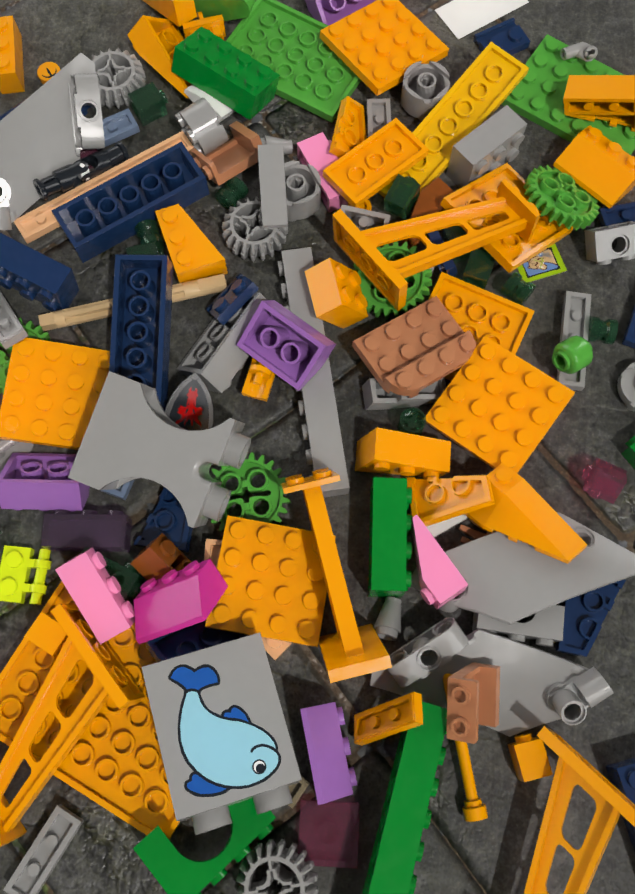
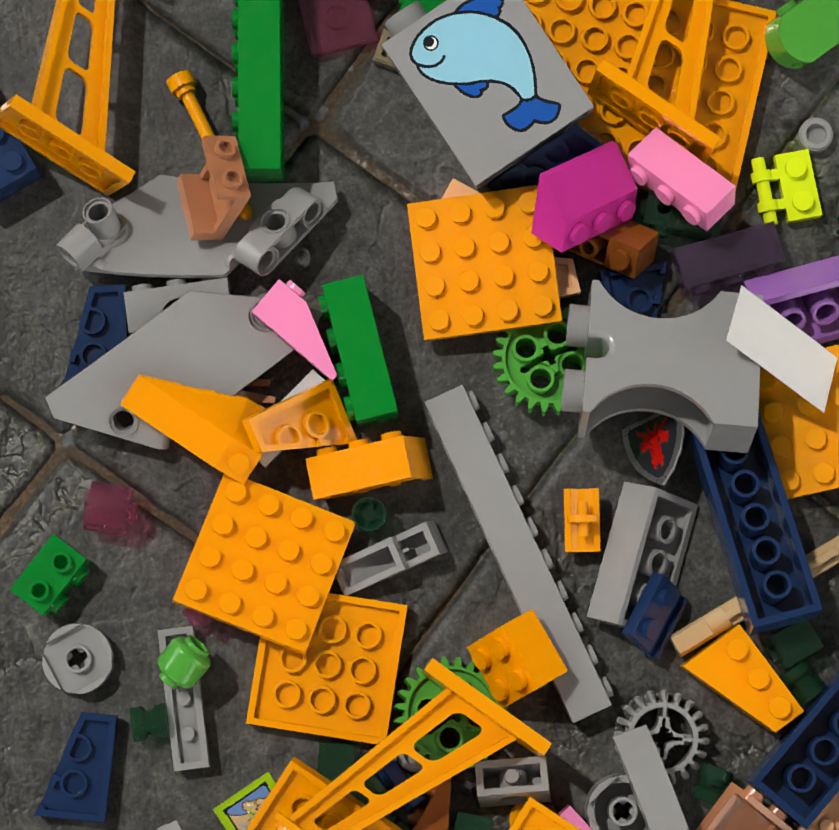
camera: 165 degrees right, 10 degrees up
(47, 634) = (723, 121): light orange brick -> none
(71, 434) = (782, 348): none -> white sticker
(285, 344) = (560, 560): medium lavender slope -> none
(328, 752) = (363, 95): medium lavender slope -> none
(351, 649) = (371, 210): light orange piece -> none
(388, 718) = (304, 143): light orange tile -> none
(389, 619) = (331, 260): light grey cone -> none
(415, 349) = (389, 611): nougat plate -> none
(523, 291) = (274, 751): clear green wheel -> none
(529, 758) = (133, 151): light orange brick -> none

